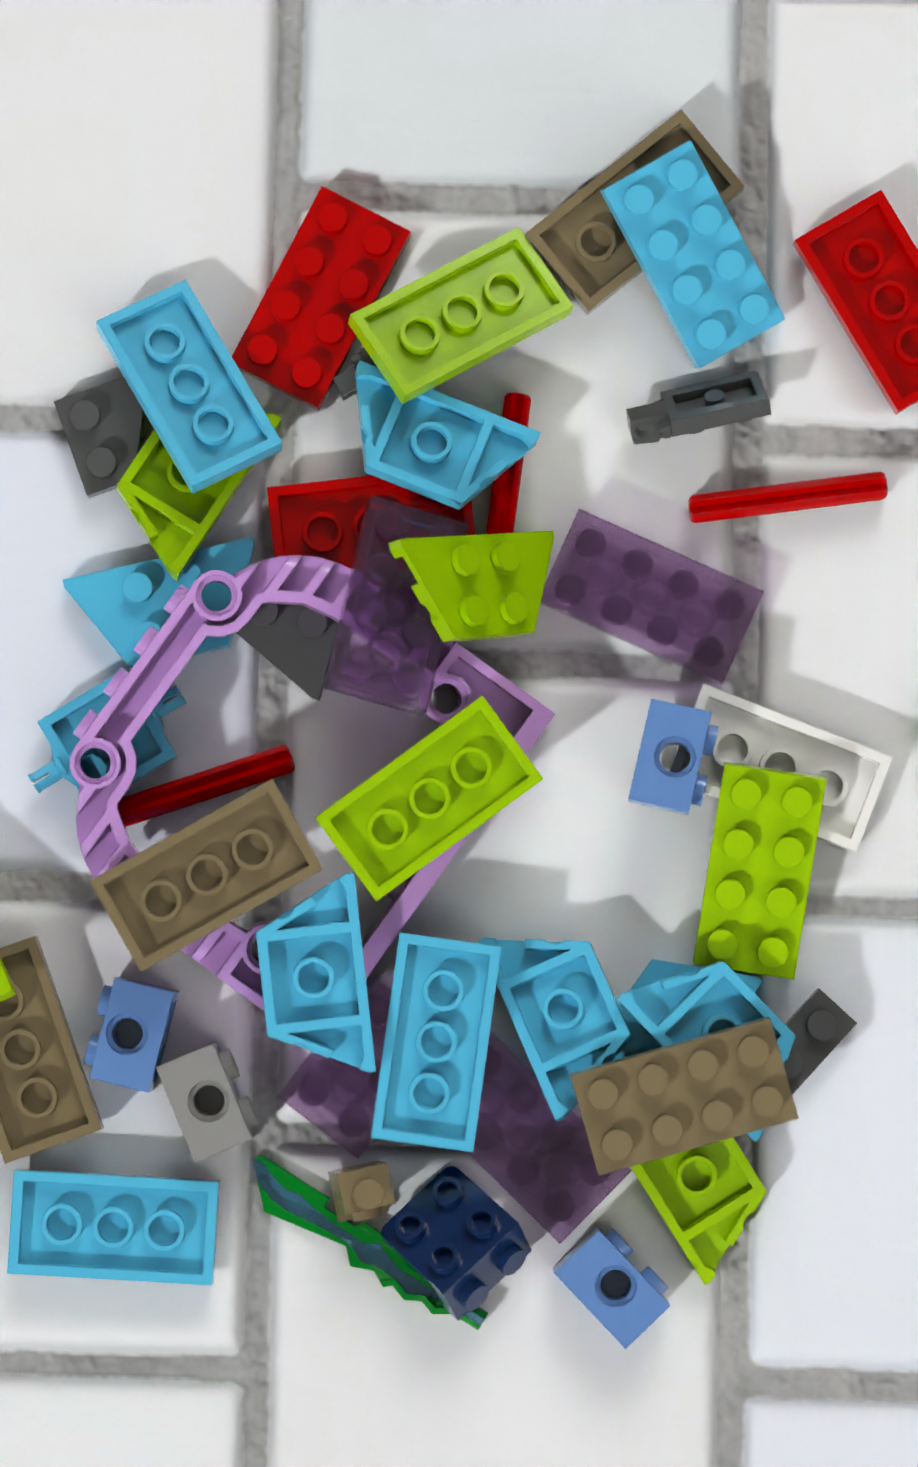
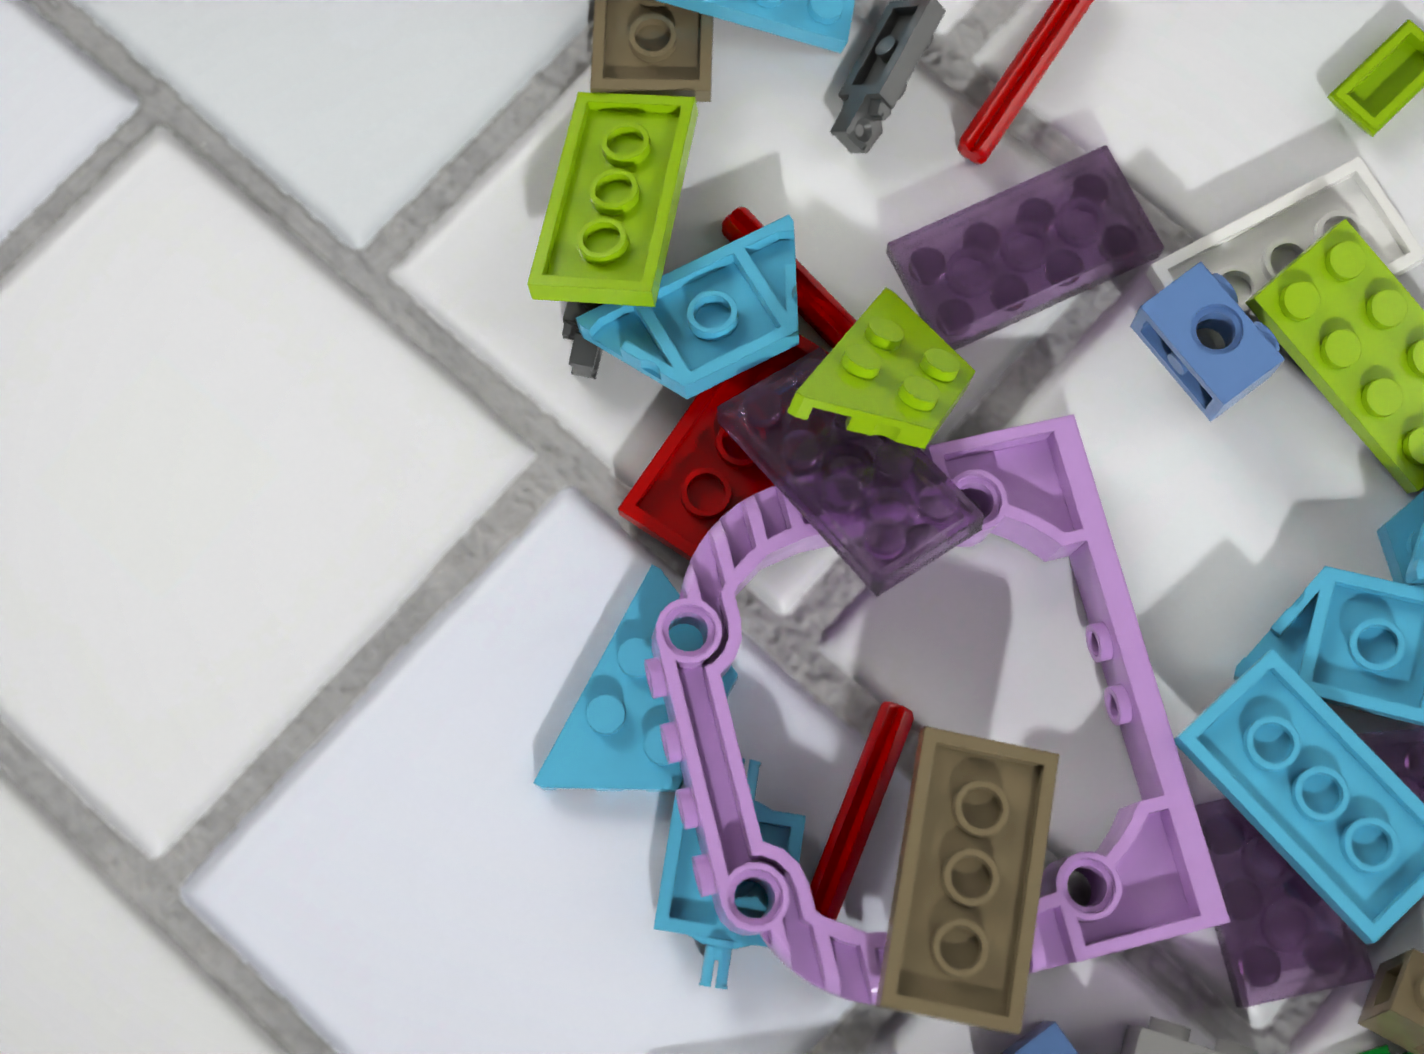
camera: 50 degrees left, 10 degrees down
(102, 432) = (427, 620): dark grey wing -> none
(166, 508) = (543, 574): lime wing -> none
(189, 386) = (457, 498): medium azure plate -> none
(294, 642) = (792, 609): dark grey wing -> none
(317, 976) = (1164, 854): medium azure wing -> none
(327, 274) = (481, 322): red plate -> none
(429, 798) = (1067, 595): lime plate -> none

